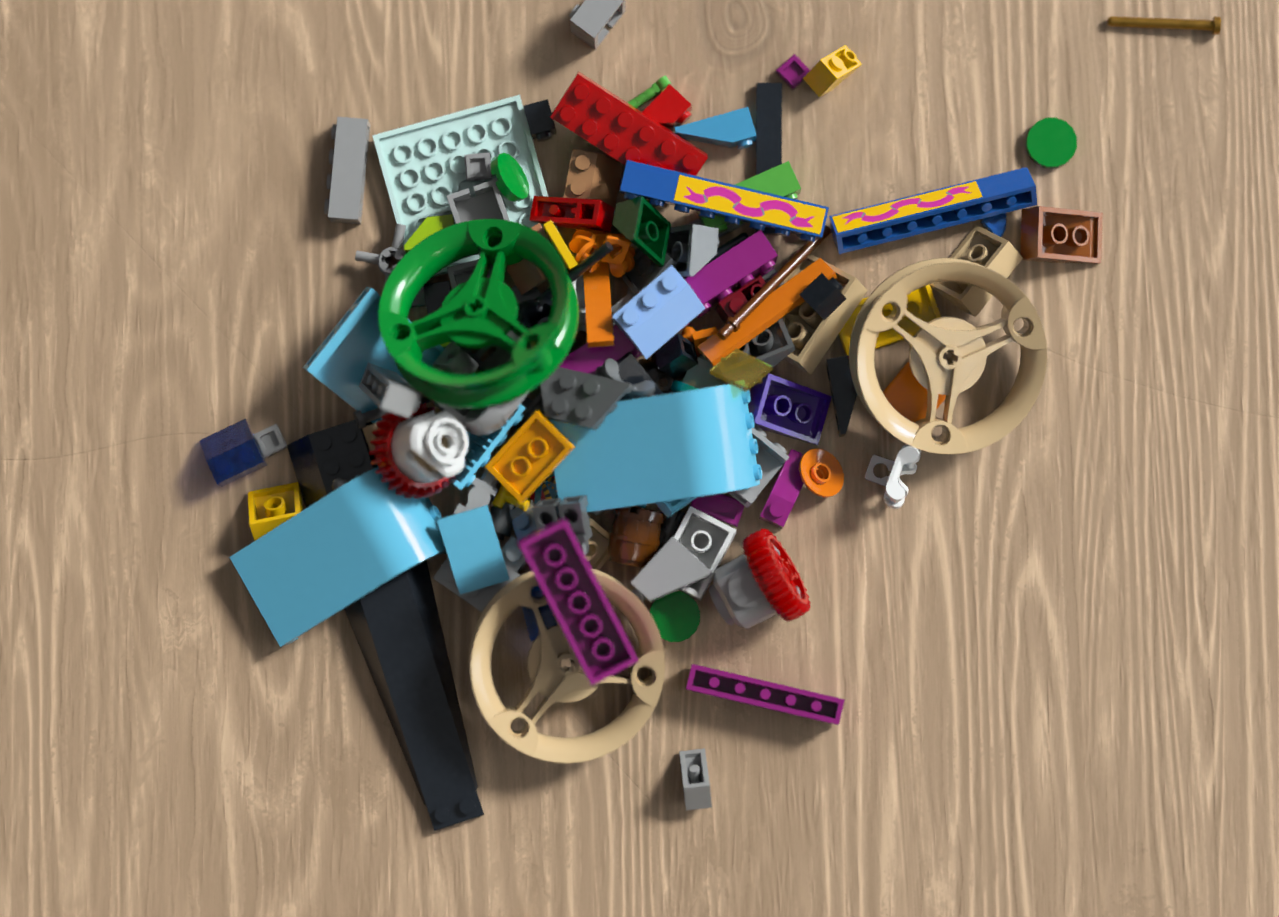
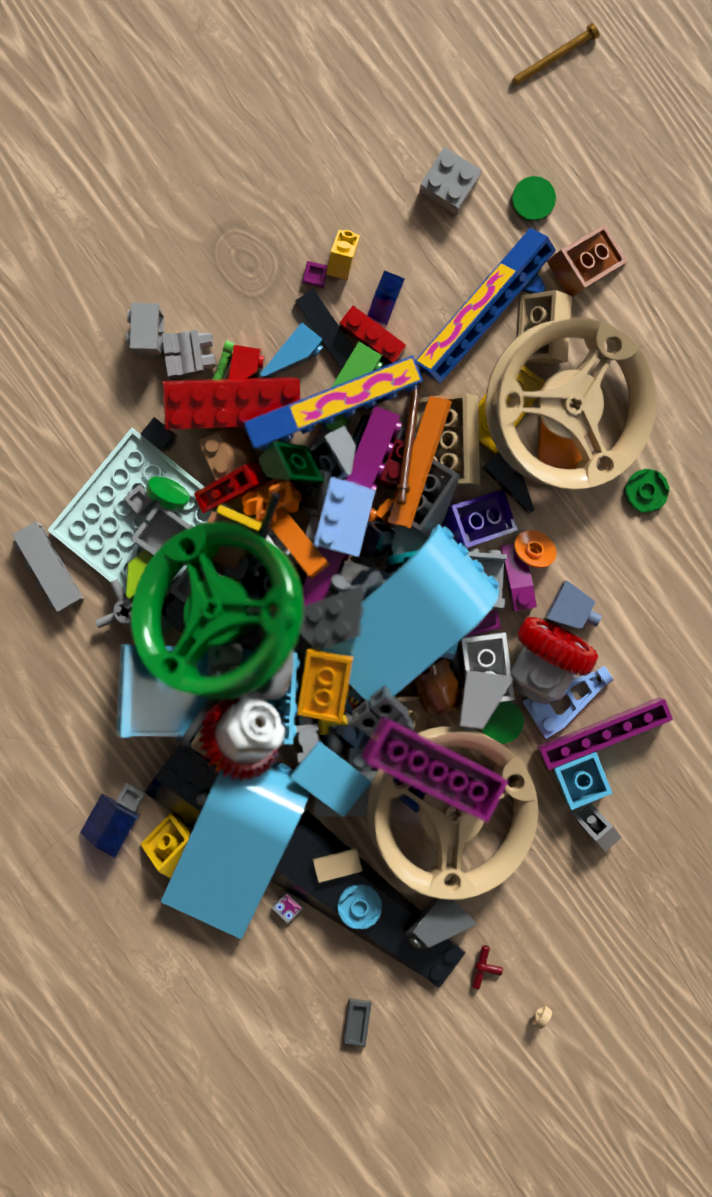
camera: 30 degrees left, 5 degrees up
(332, 809) = (357, 1022): none -> dark grey tile
(344, 650) = (287, 907): none -> tile
(389, 390) = (191, 712): light grey brick -> none
(414, 694) = (359, 906): none -> medium azure tile
(421, 639) = (337, 865): none -> tan tile
(479, 765) = (438, 922): none -> dark grey slope
(489, 841) = (481, 967): none -> dark red piece
(619, 62) = (186, 354): none -> light grey hips
(712, 723) = (582, 781): none -> medium azure brick
(720, 648) = (549, 721): none -> light blue plate
(741, 370) = (433, 518): clear yellow piece -> none
(806, 164) = (372, 335): none -> red brick
(818, 554) = (572, 607): none -> sand blue torso
(824, 295) = (453, 422): black brick -> none
(844, 138) = (386, 297): none -> clear blue slope
(904, 464) = (598, 527): white piece -> none
(968, 493) = (646, 490): none -> green tile
(981, 72) = (450, 181): none -> light grey brick

